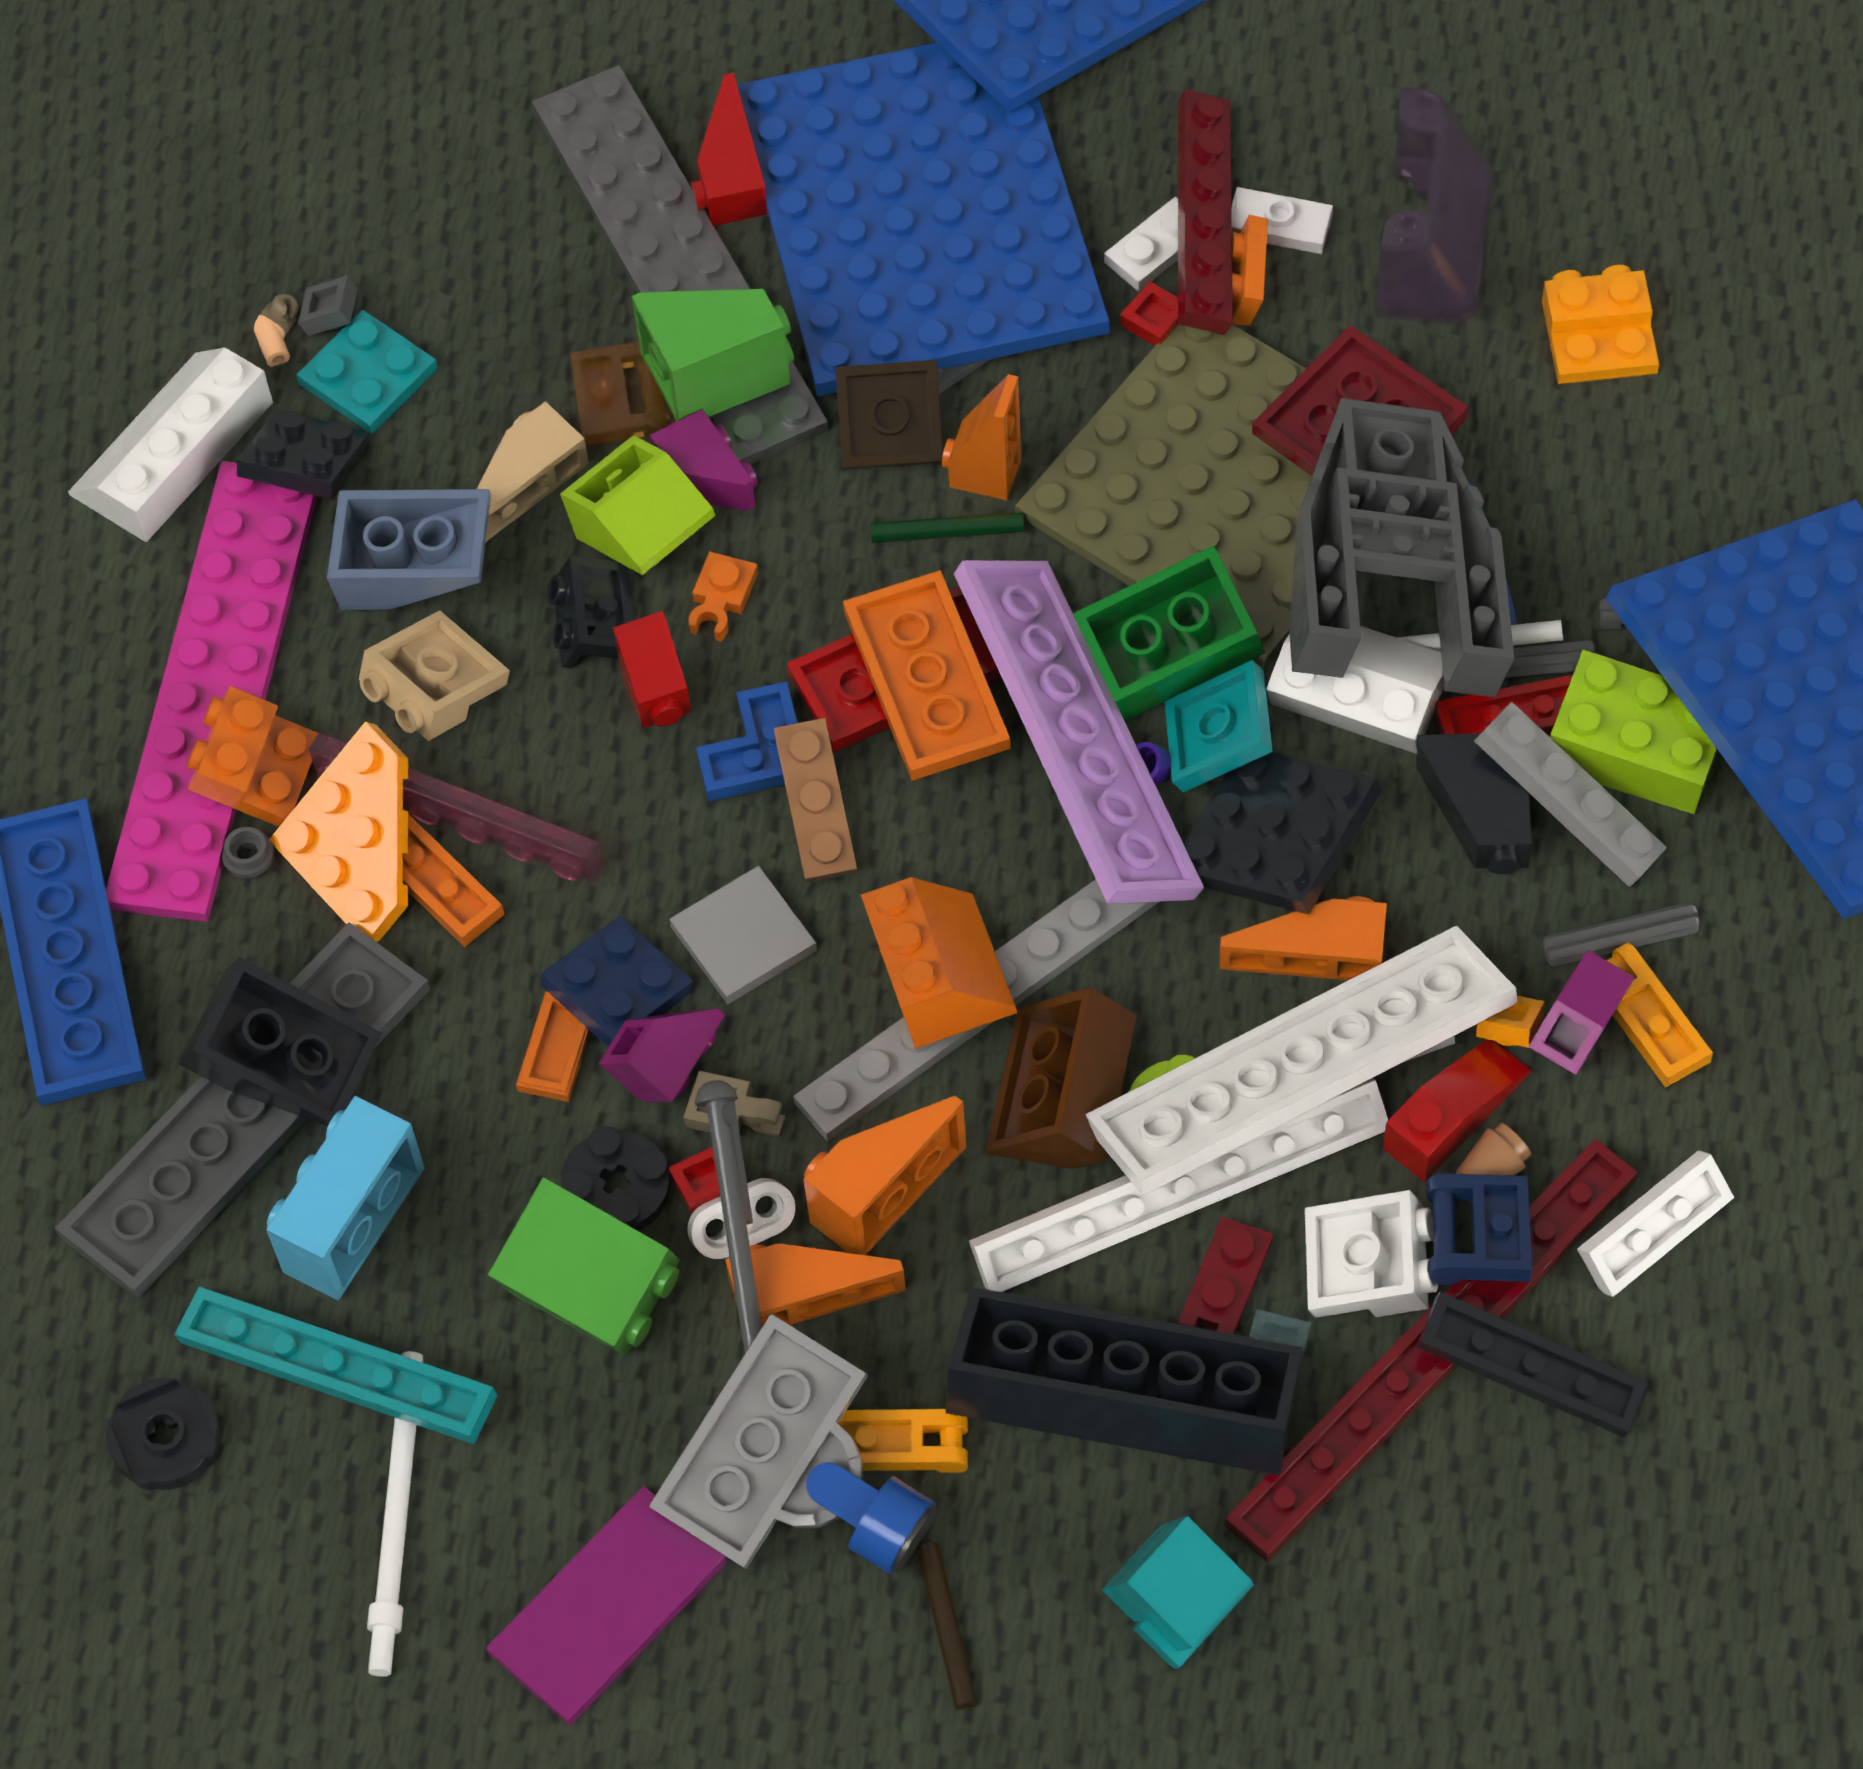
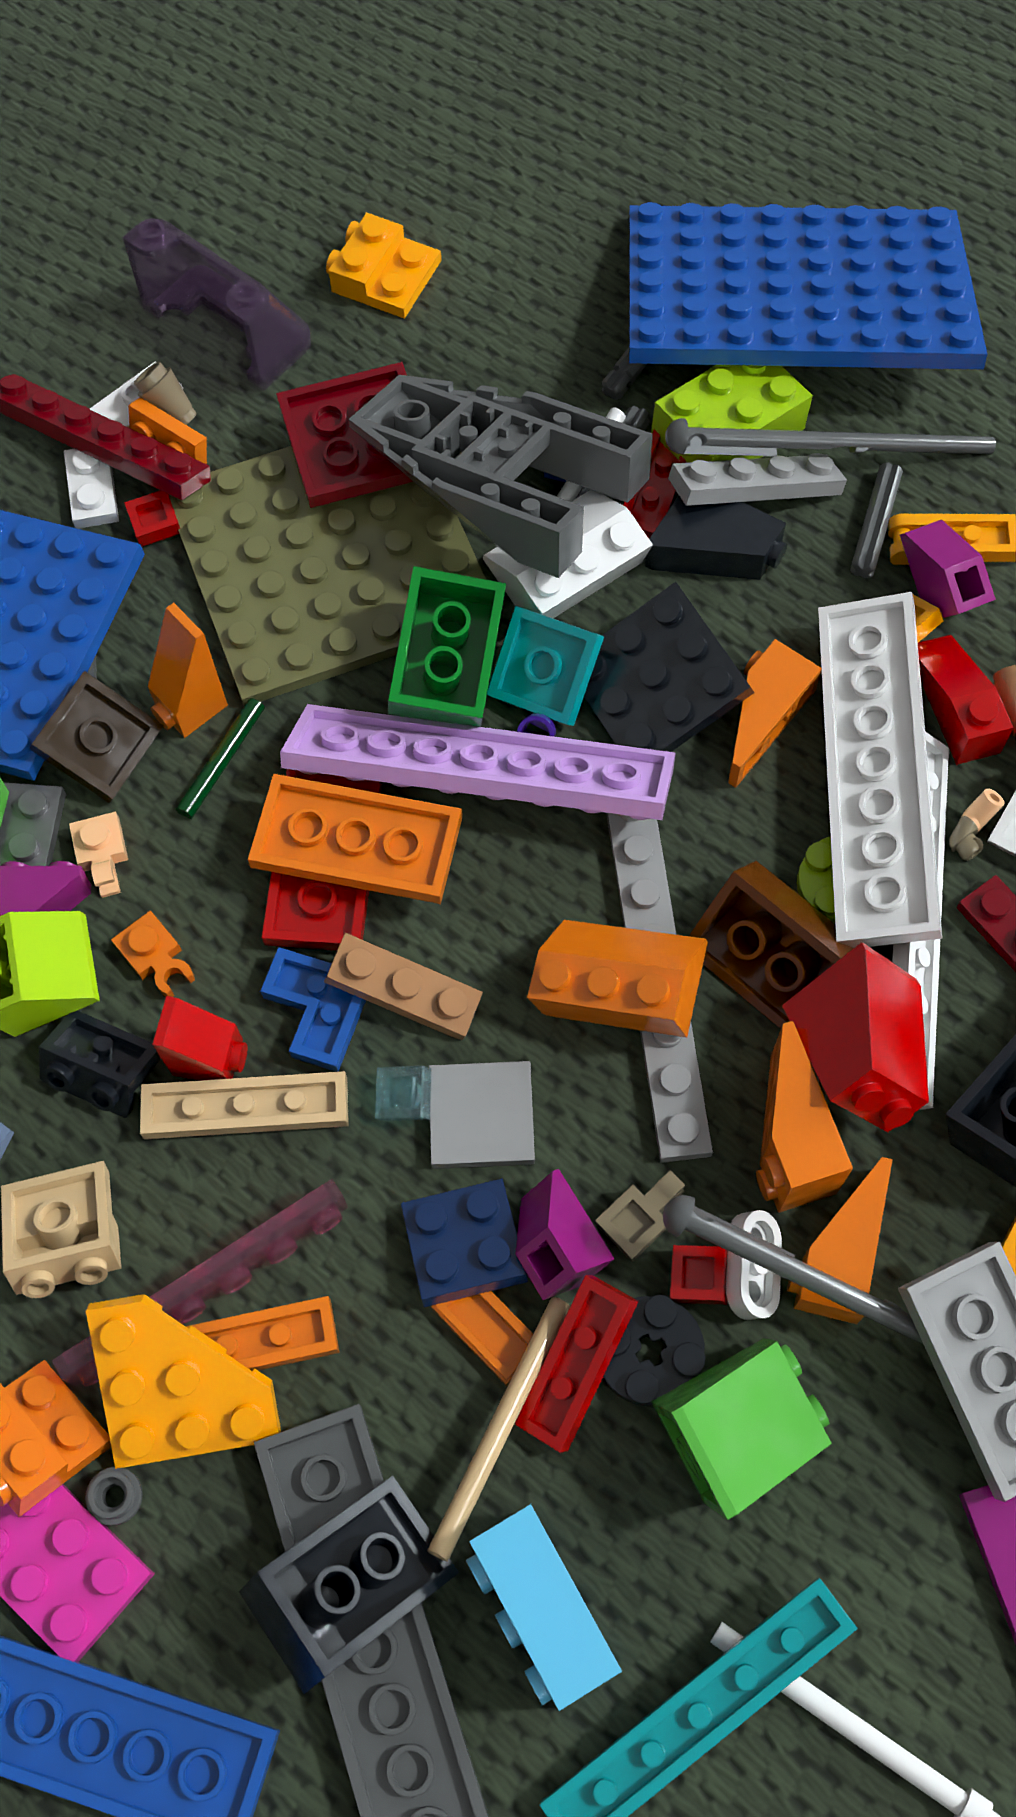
camera: 60 degrees left, 5 degrees up
(478, 1090) = (498, 1430): none -> tan piece
(562, 1119) = (576, 1363): none -> red plate
(628, 746) = (244, 1105): none -> tan plate
(718, 859) = (403, 1093): none -> clear light blue plate
(789, 487) = (98, 847): none -> light nougat plate
(995, 1178) = (865, 1037): none -> red slope
(1291, 237) = (162, 389): none -> dark tan cone
(1313, 1188) = (972, 821): none -> arm
(1605, 772) = (763, 442): none -> dark grey bar

